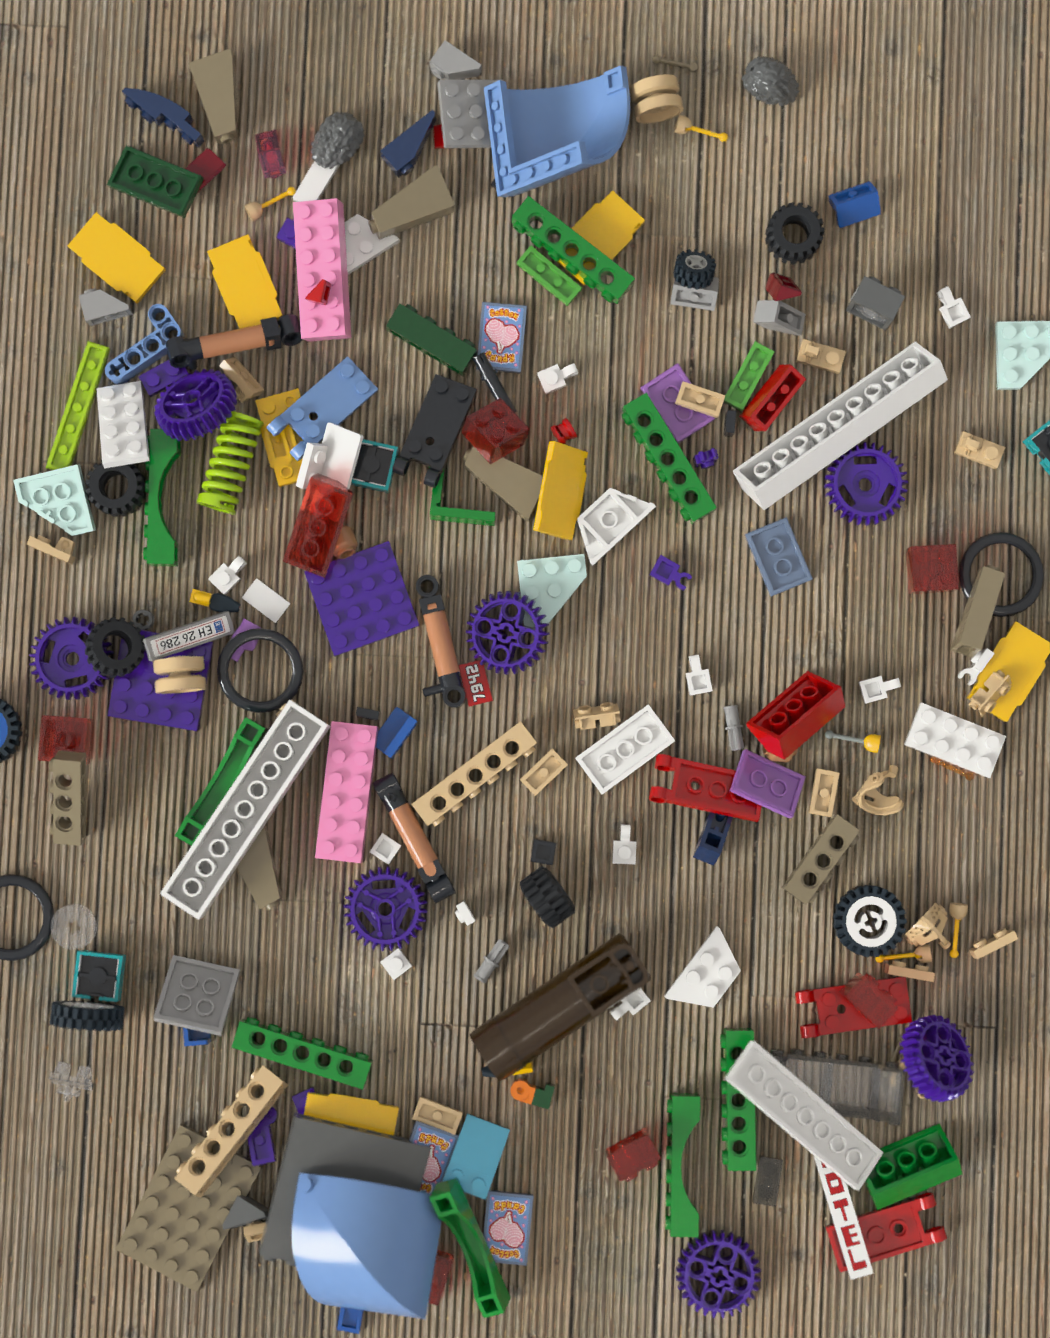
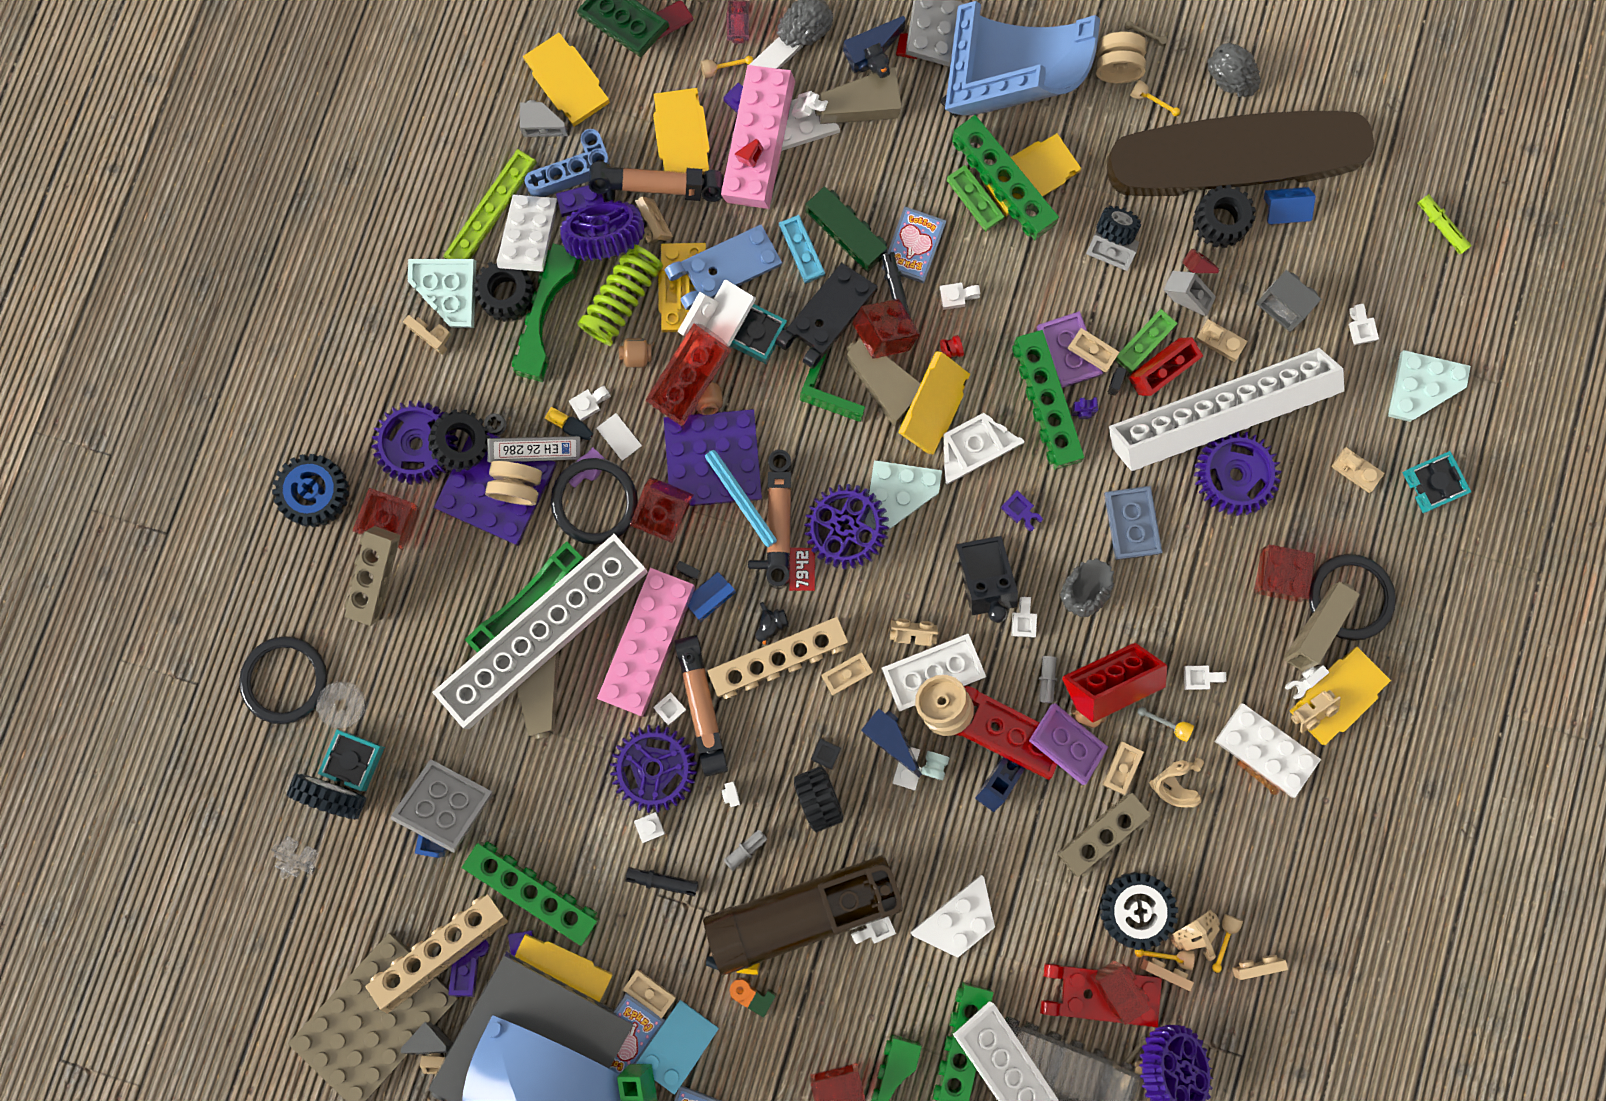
camera: 15 degrees right, 5 degrees down
(260, 515) = (635, 352): none -> medium nougat head
(327, 662) = (661, 510): none -> clear red brick
(360, 226) = (807, 103): none -> white plate
(393, 369) = (801, 249): none -> medium azure tile
(399, 632) = (740, 498): none -> medium azure axle
(419, 164) = (877, 60): none -> black animal
(426, 1010) = (661, 881): none -> black pin
(459, 743) = (770, 624): none -> black animal
(600, 821) = (888, 735): none -> dark blue slope
(642, 779) = (944, 705): none -> tan wheel
(648, 836) = (935, 765): none -> light aqua wheel
(653, 646) = (987, 577): none -> black slope
(750, 632) = (1088, 588): none -> dark grey piece
(794, 164) = (1239, 152): none -> dark brown piece
(1011, 187) = (1444, 224): none -> lime pin

